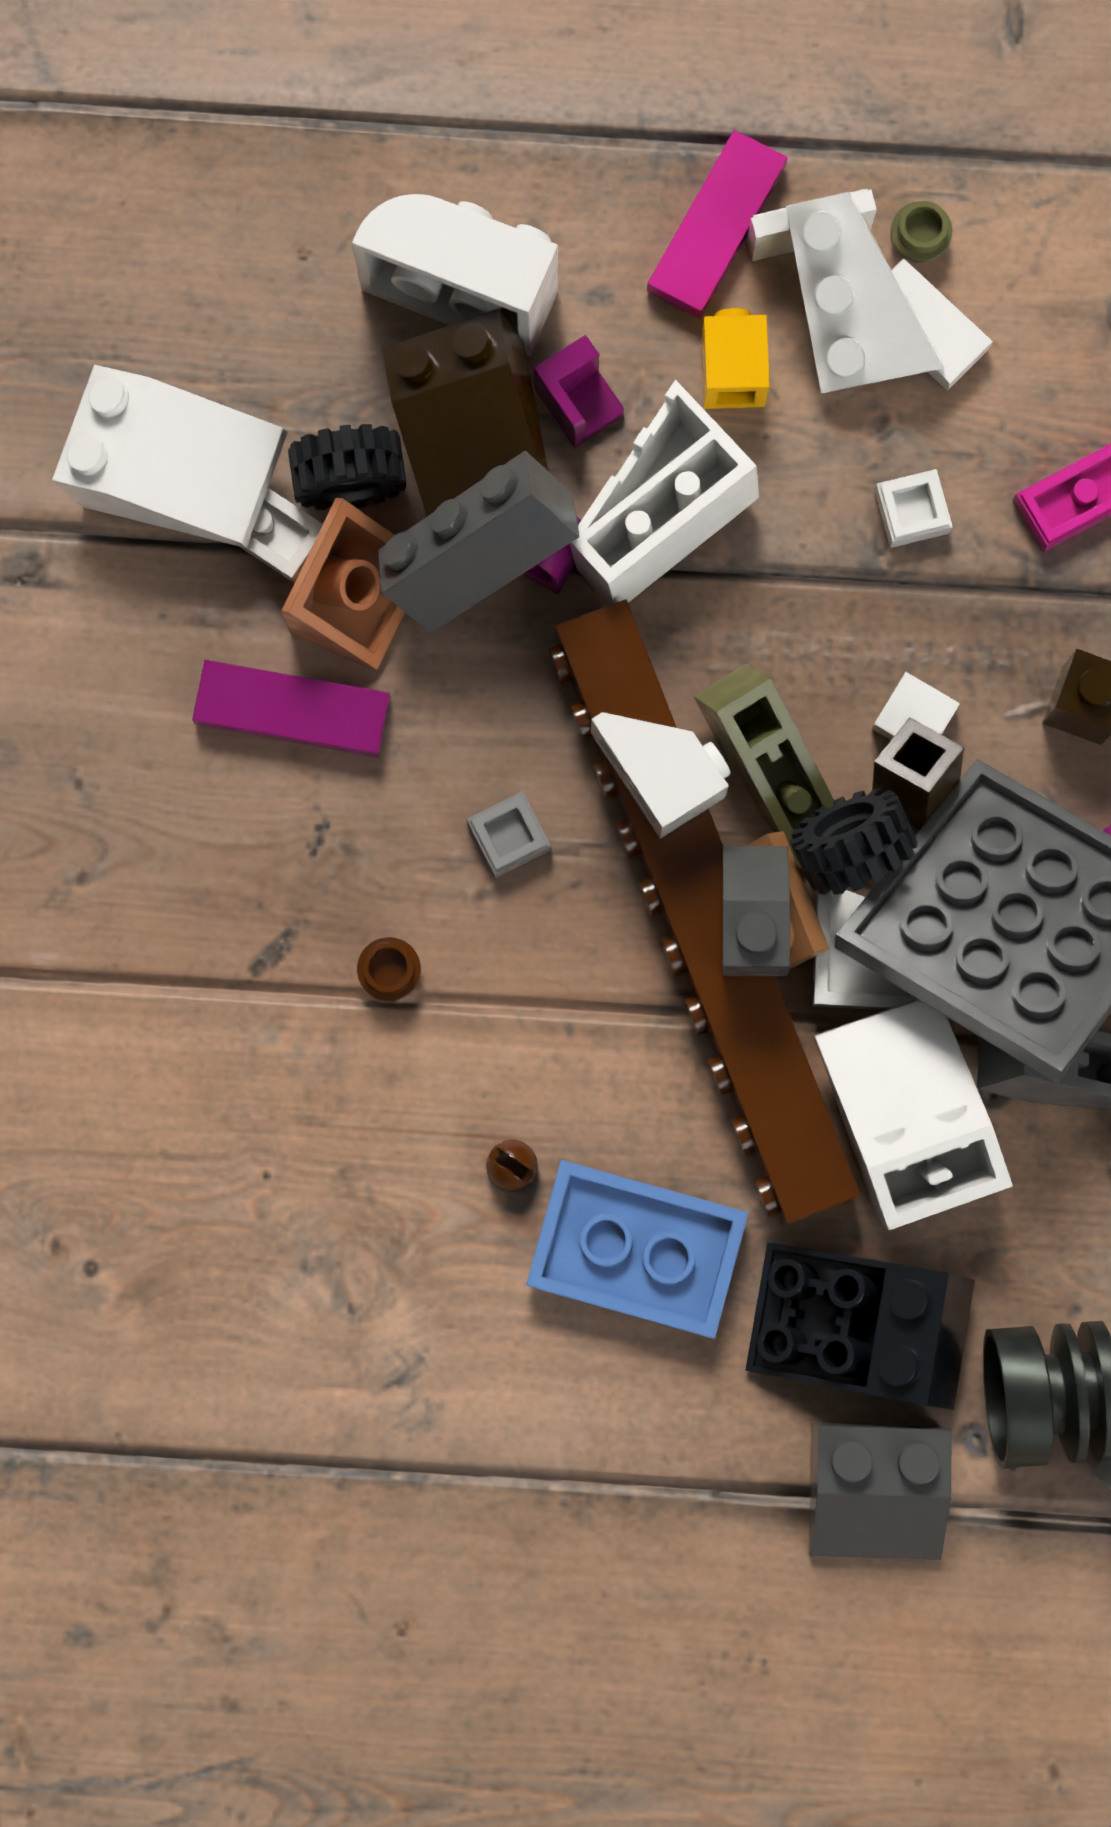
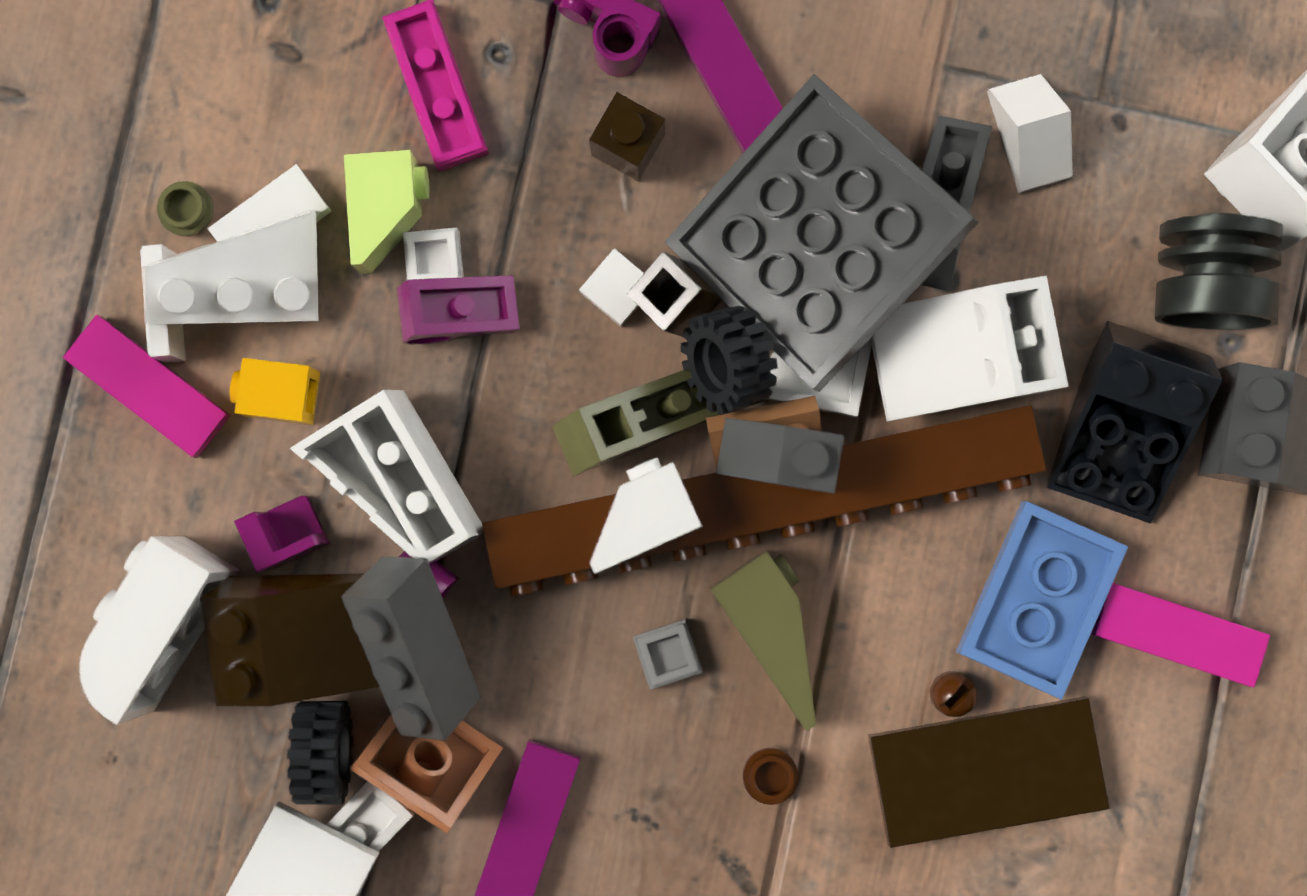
camera: 85 degrees left, 5 degrees up
(429, 1218) = (988, 771): none -> dark brown tile
(561, 940) = (769, 619): none -> olive slope
(621, 1422) = (1181, 635): none -> dark pink tile
(862, 536) = (455, 307): none -> magenta plate
(964, 438) = (382, 203): none -> yellowish green slope

